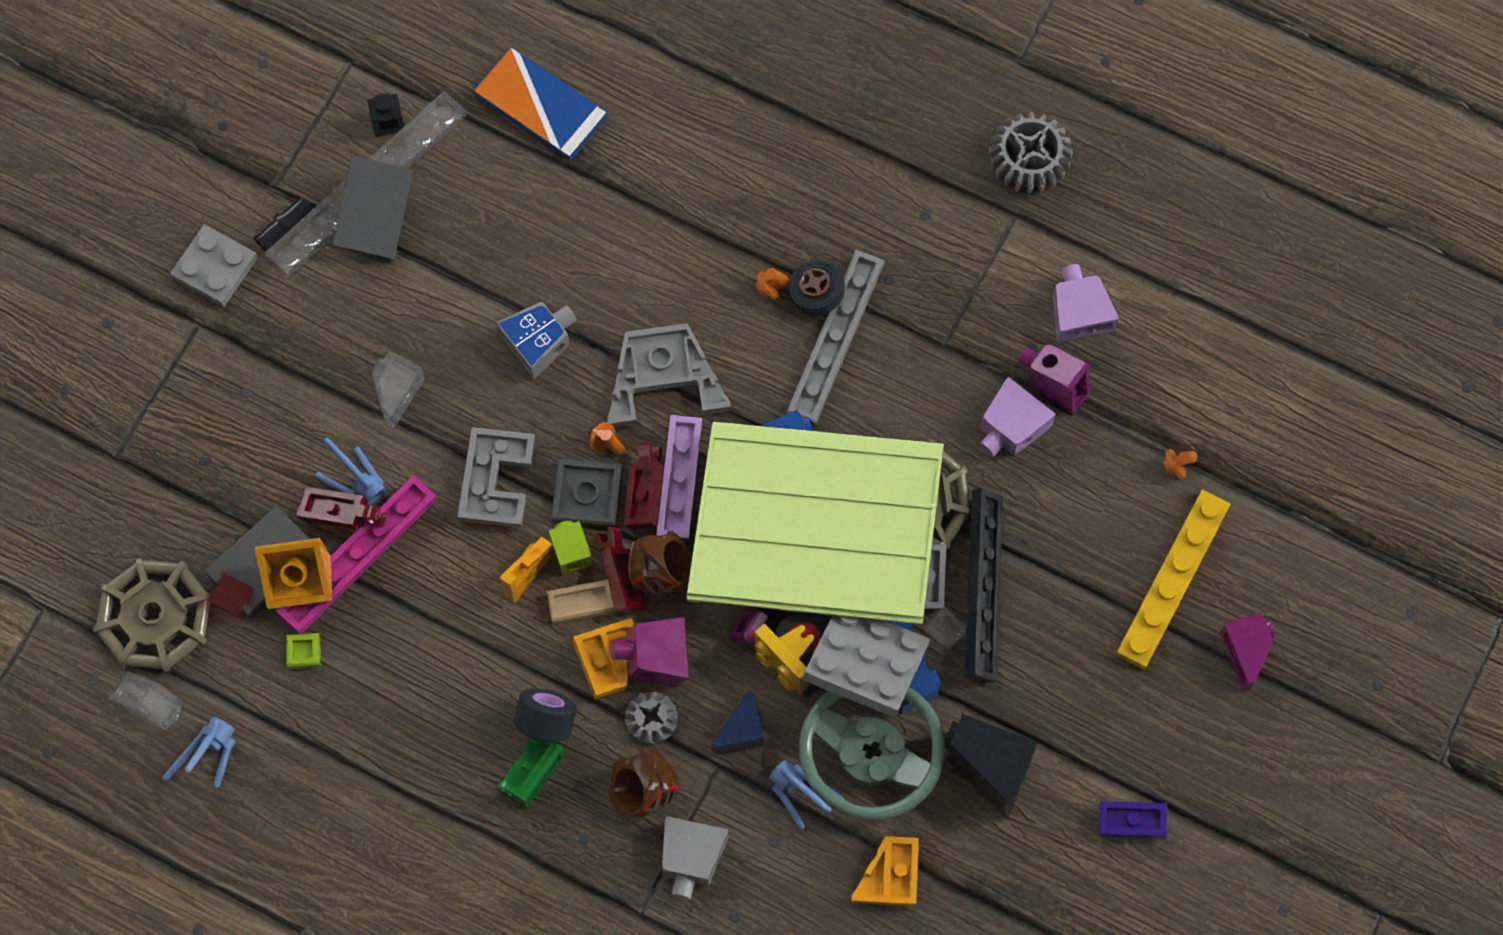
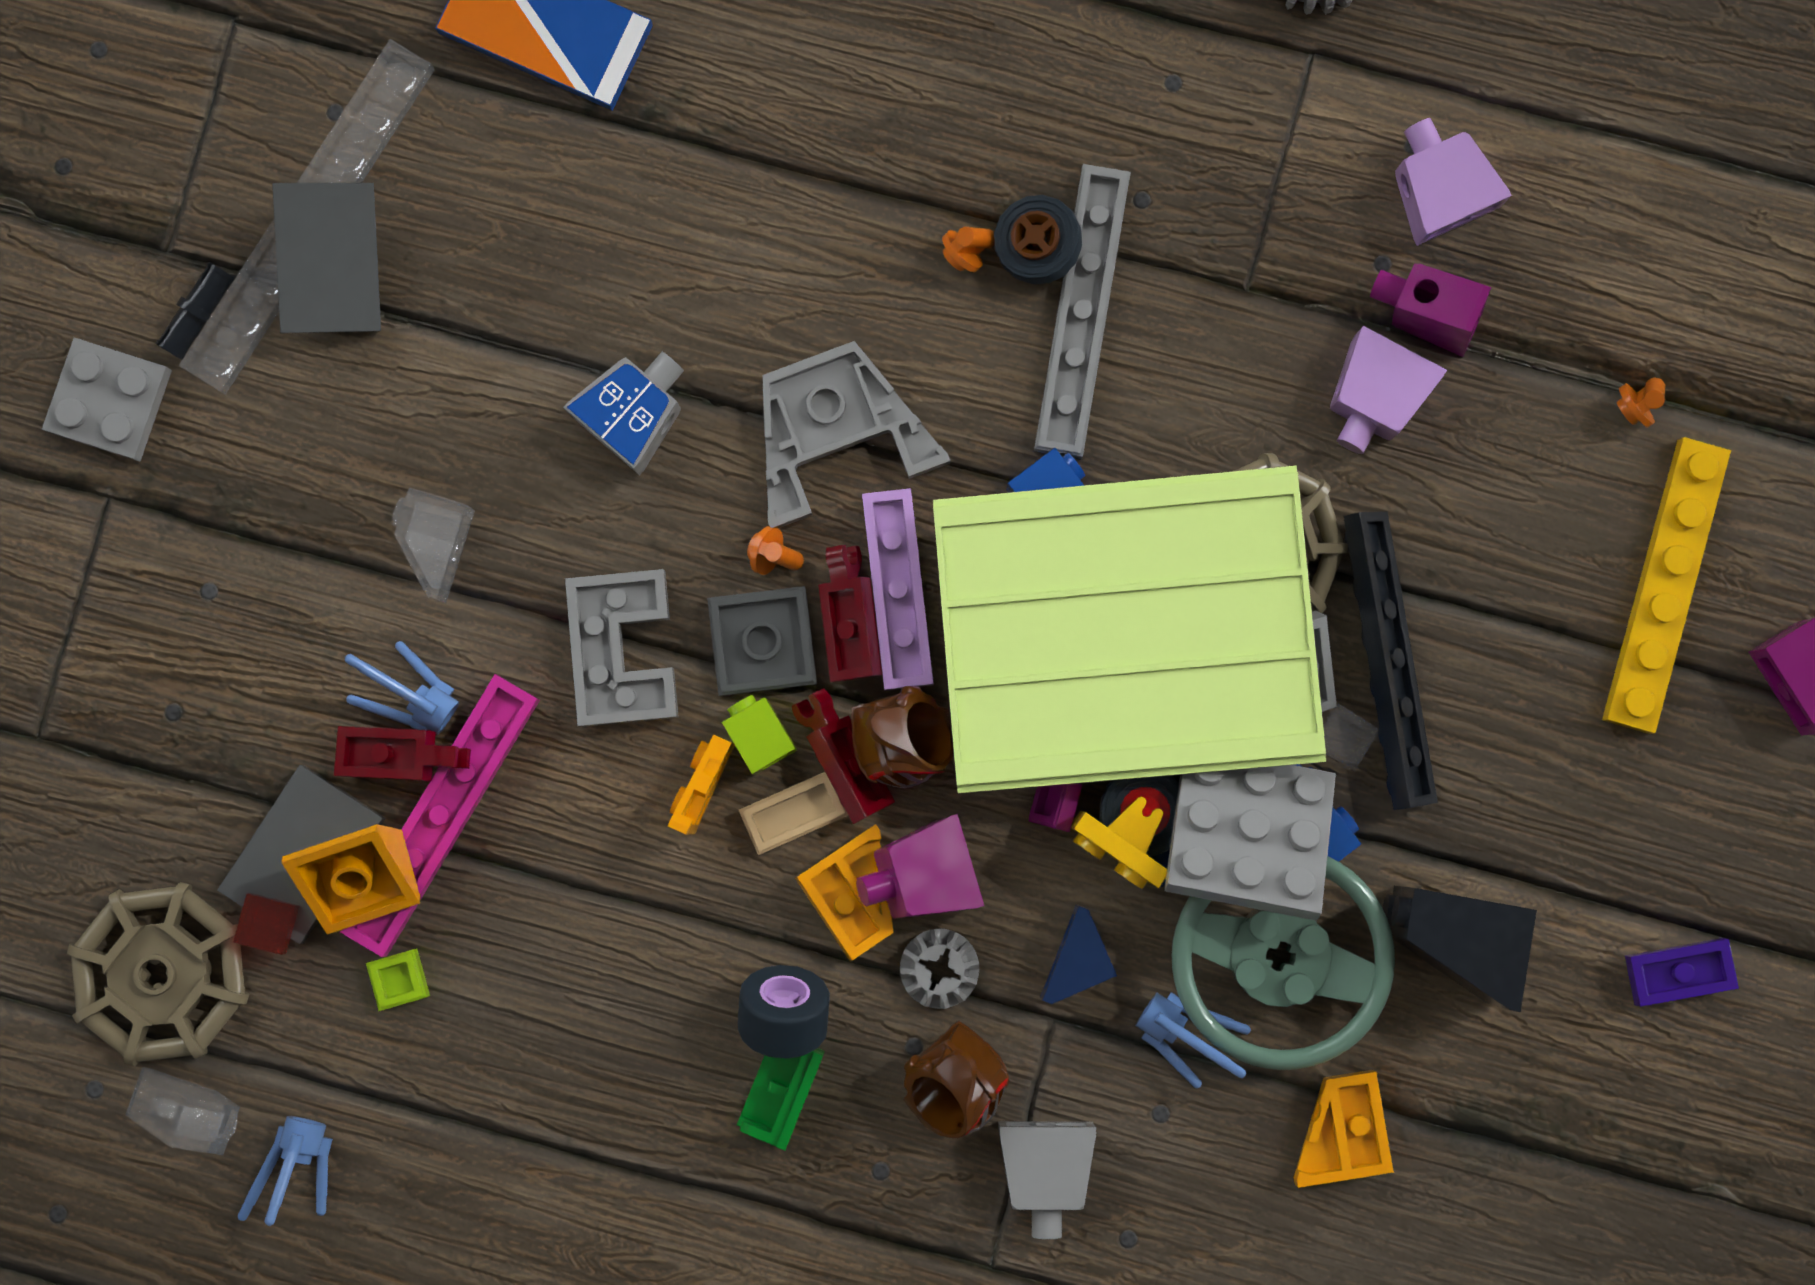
camera: 10 degrees left, 15 degrees up
(385, 108) = (305, 90): black brick -> none

